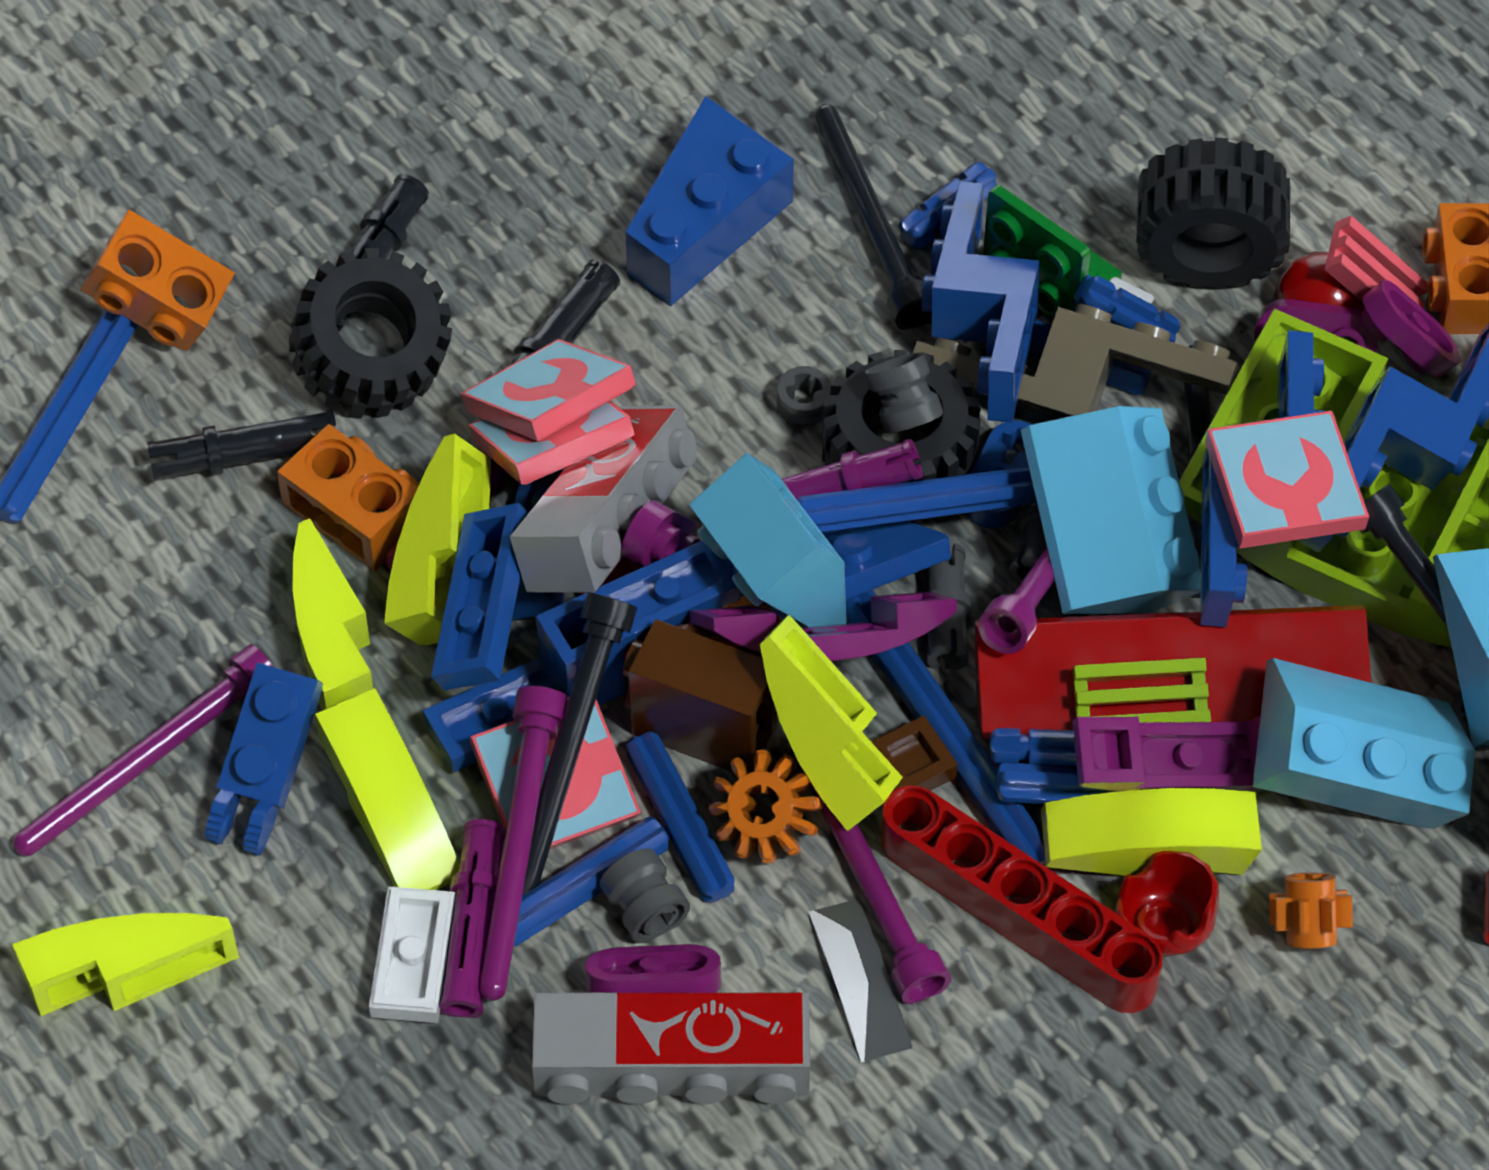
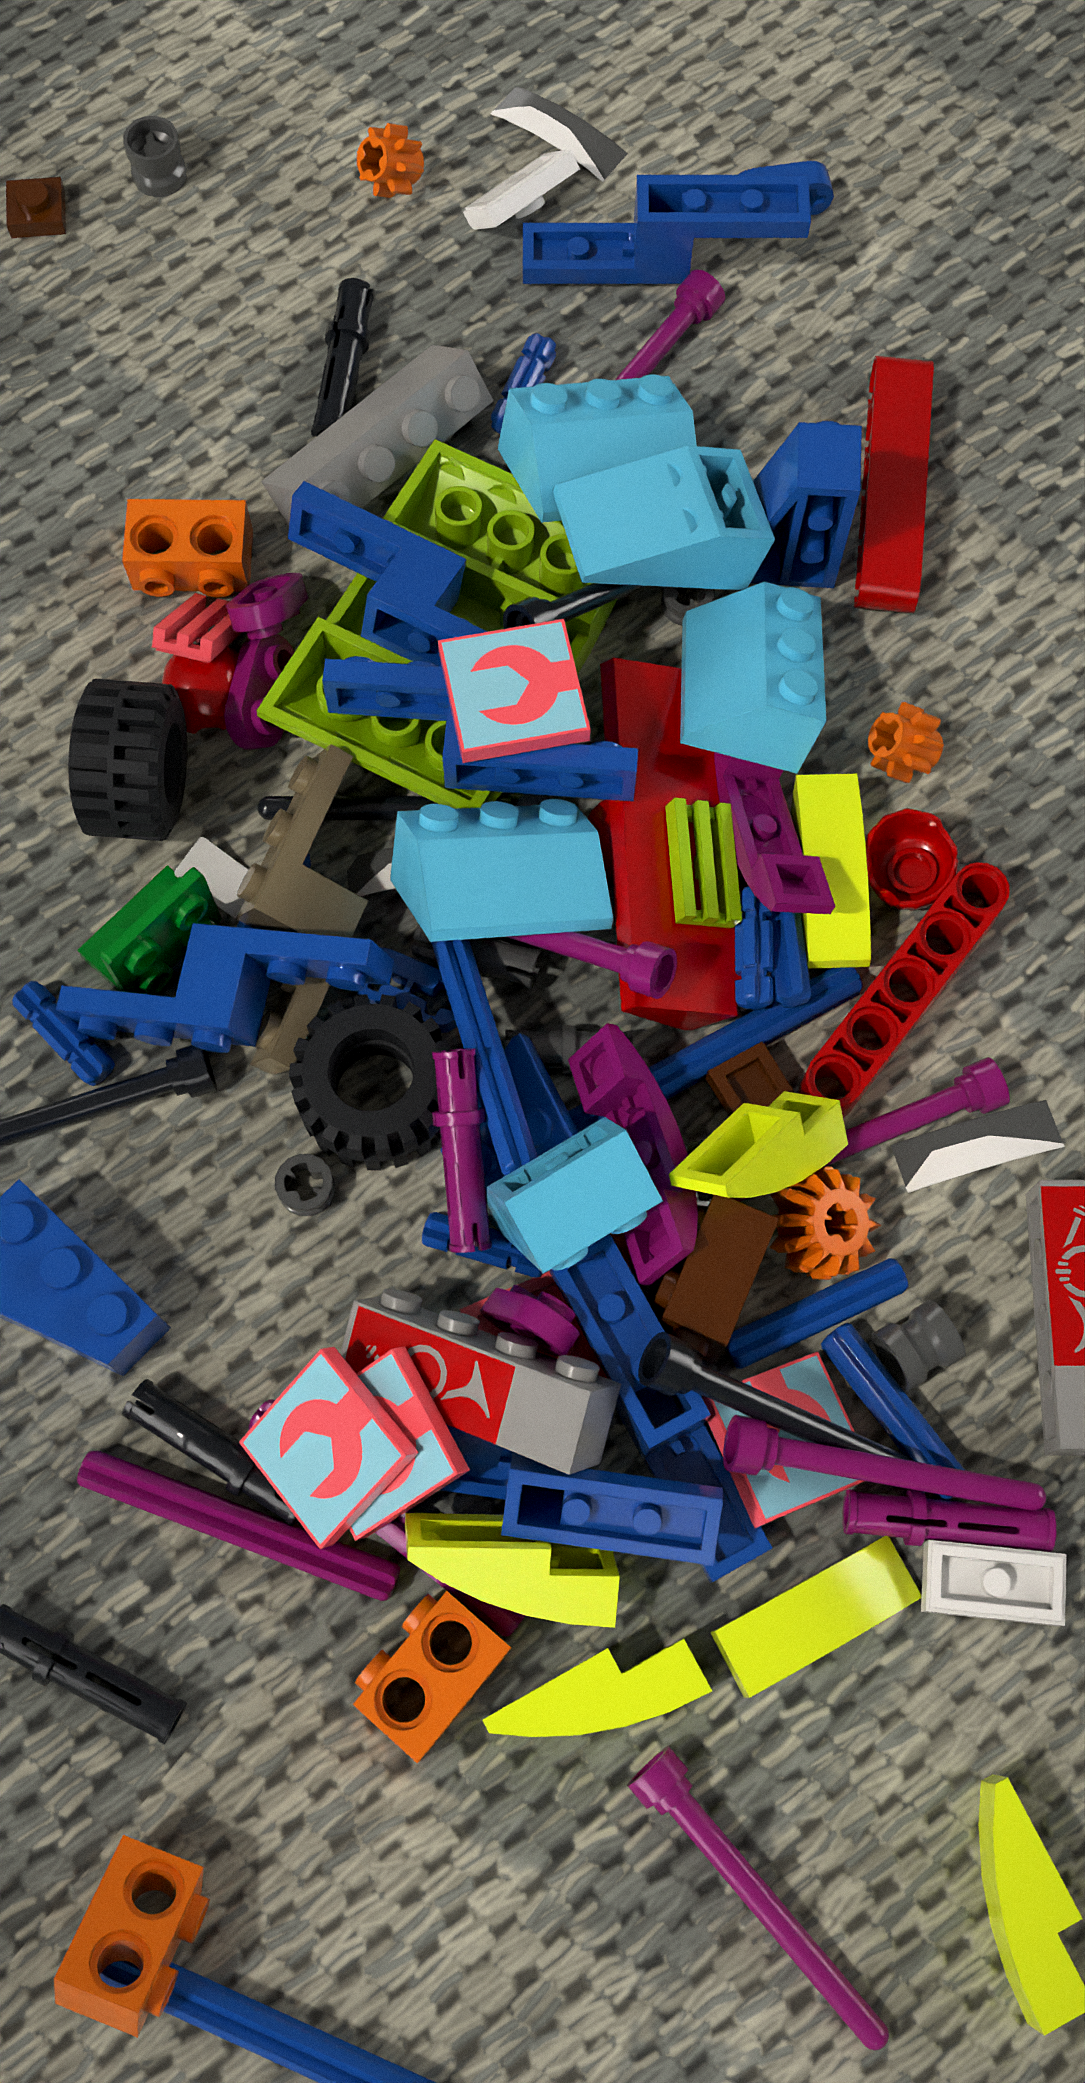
camera: 90 degrees left, 15 degrees up
(236, 445) = (352, 1814): black pin -> none
(264, 753) = (773, 1755): blue hinge -> none
(379, 288) = (264, 1614): black tyre -> none
(498, 336) = (237, 1525): none -> magenta axle
(654, 970) = (1001, 1339): magenta plate -> none
(904, 392) = (359, 1063): dark grey wheel -> none
(1123, 305) = (231, 857): blue axle -> none

